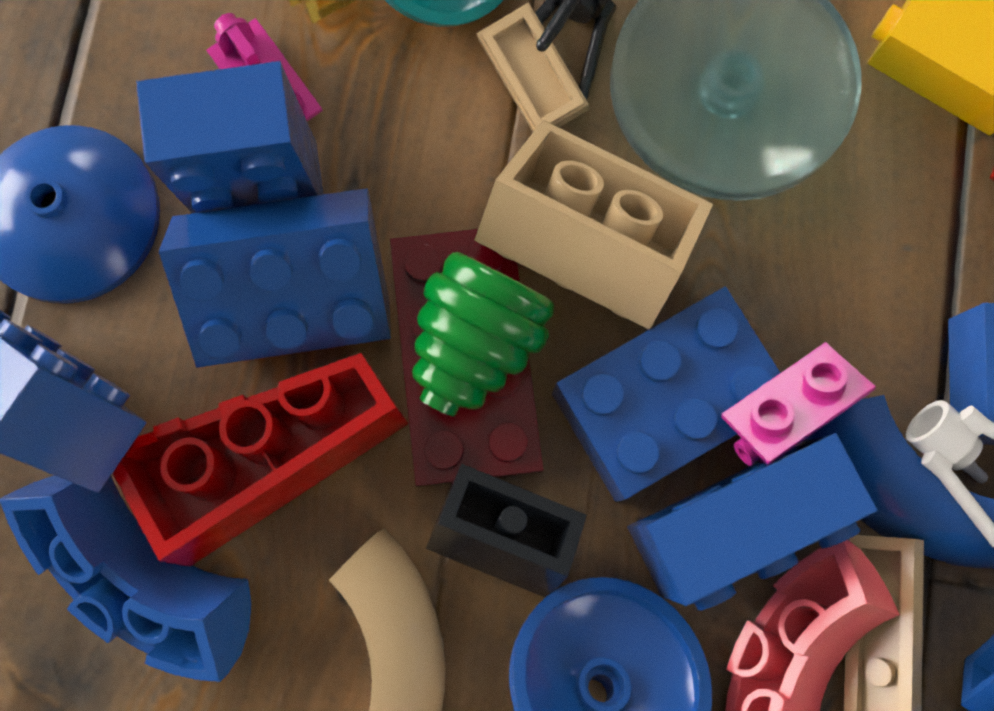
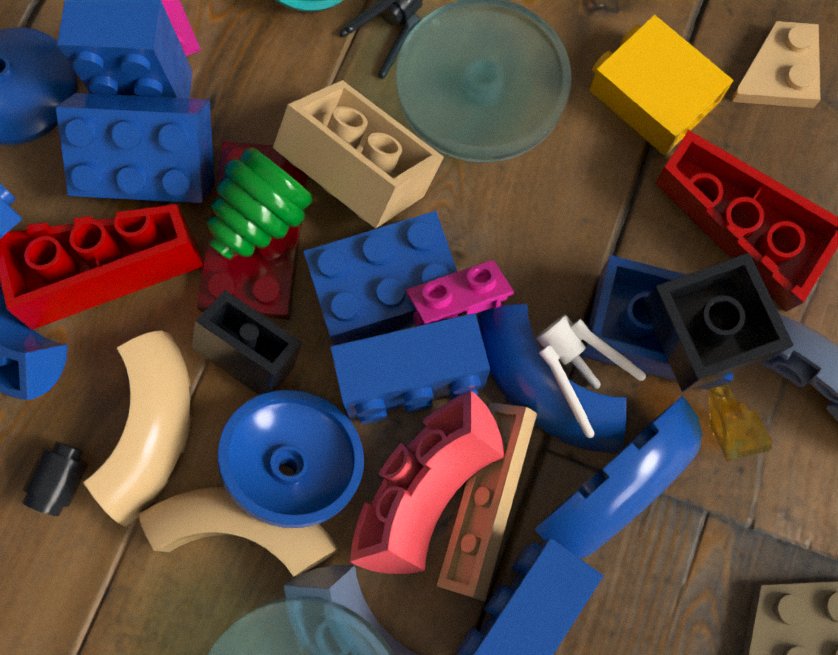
camera: 15 degrees right, 5 degrees down
(534, 78) = (350, 53): tan tile -> none

